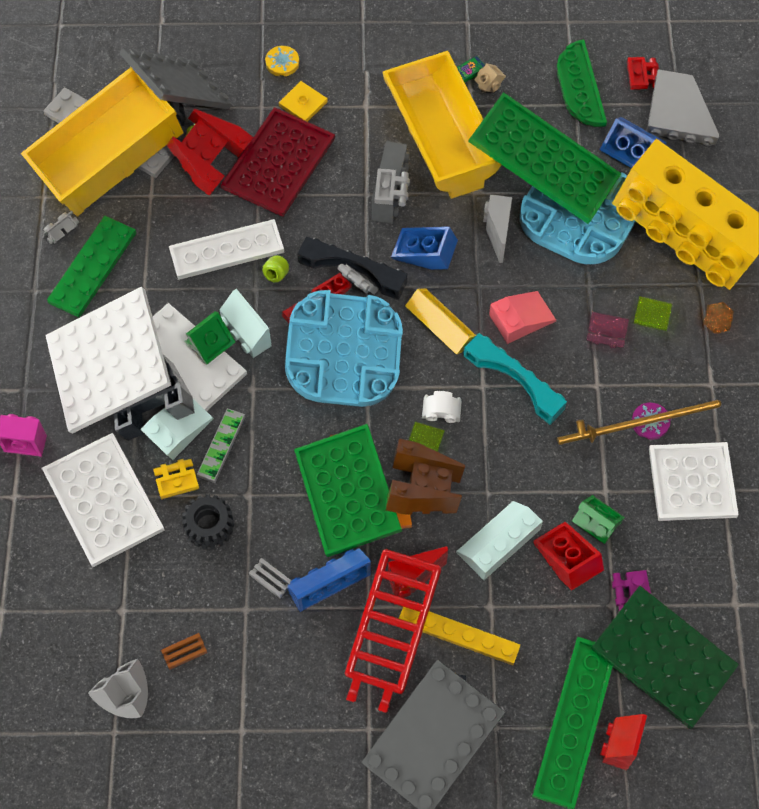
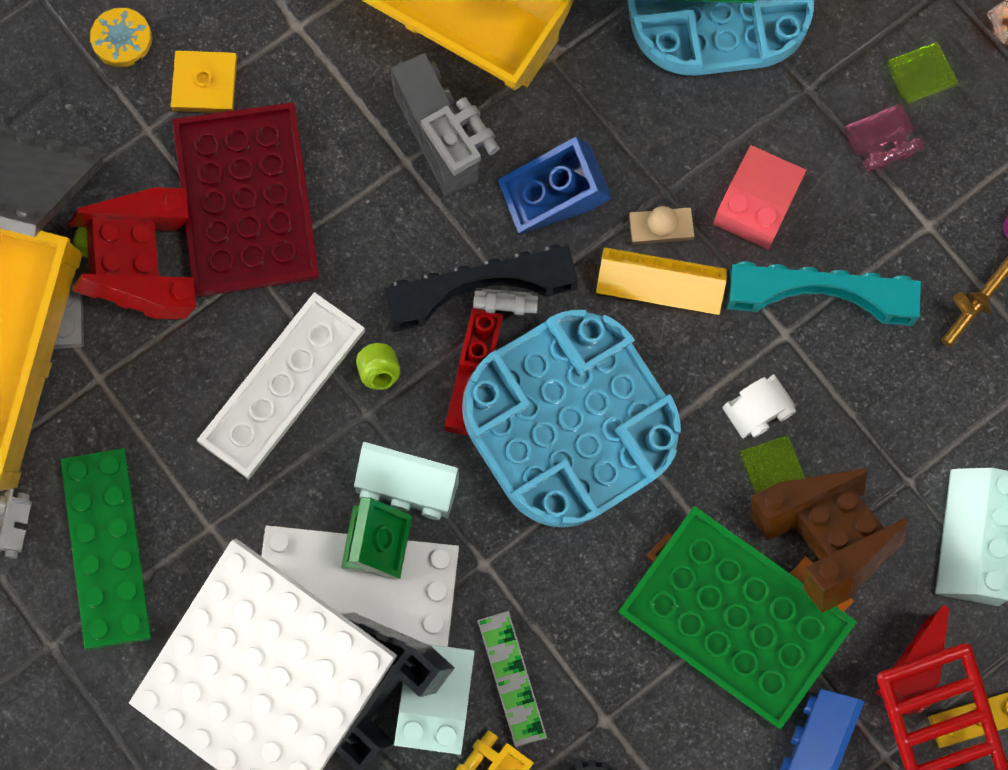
camera: 40 degrees left, 10 degrees up
(462, 297) = (661, 226): none -> tan tile
(497, 218) = (633, 86): light grey slope -> none

